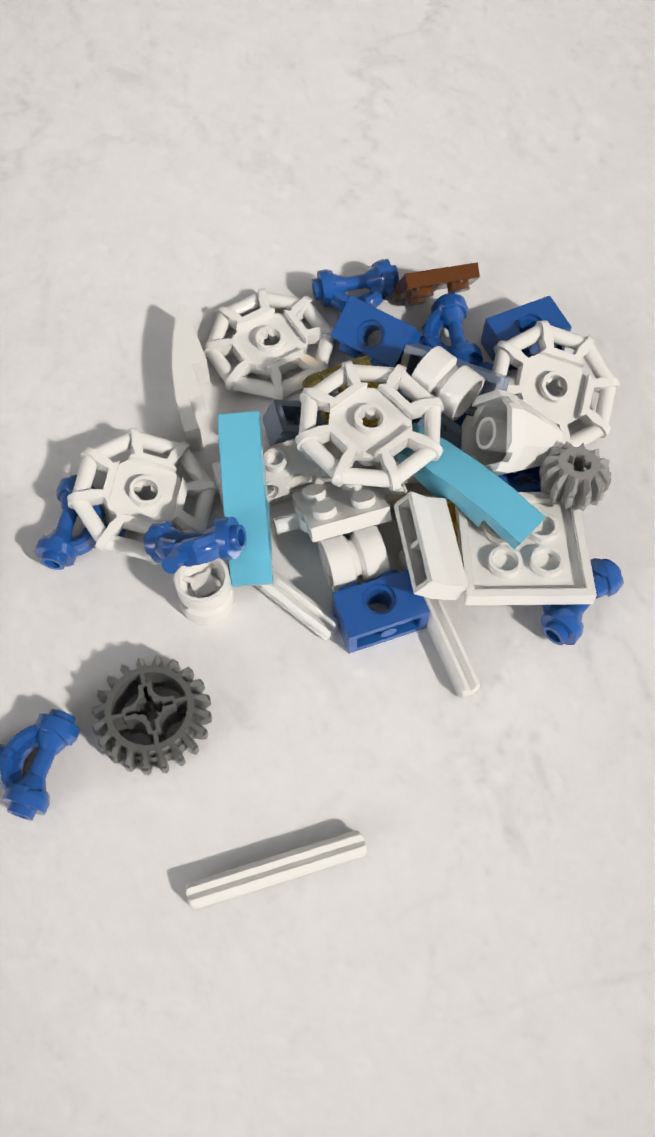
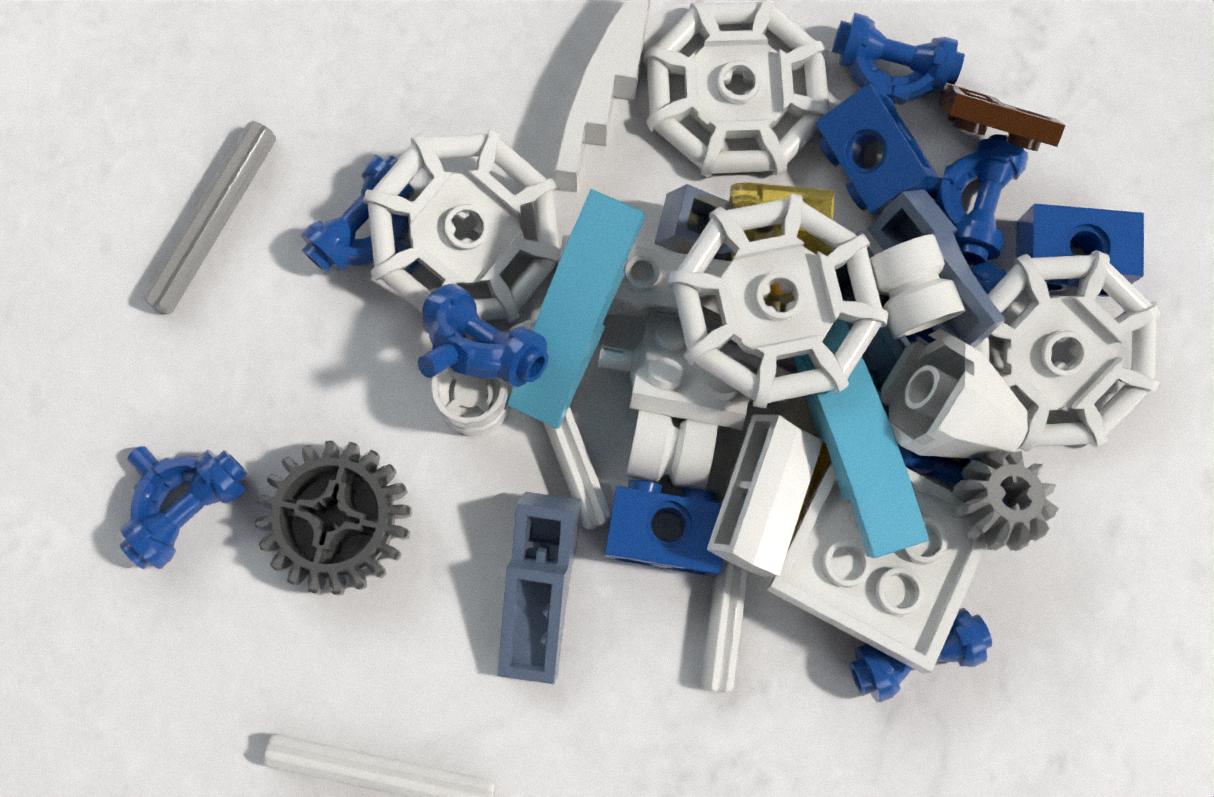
camera: 25 degrees right, 15 degrees up
(318, 688) = (538, 586): none -> sand blue slope

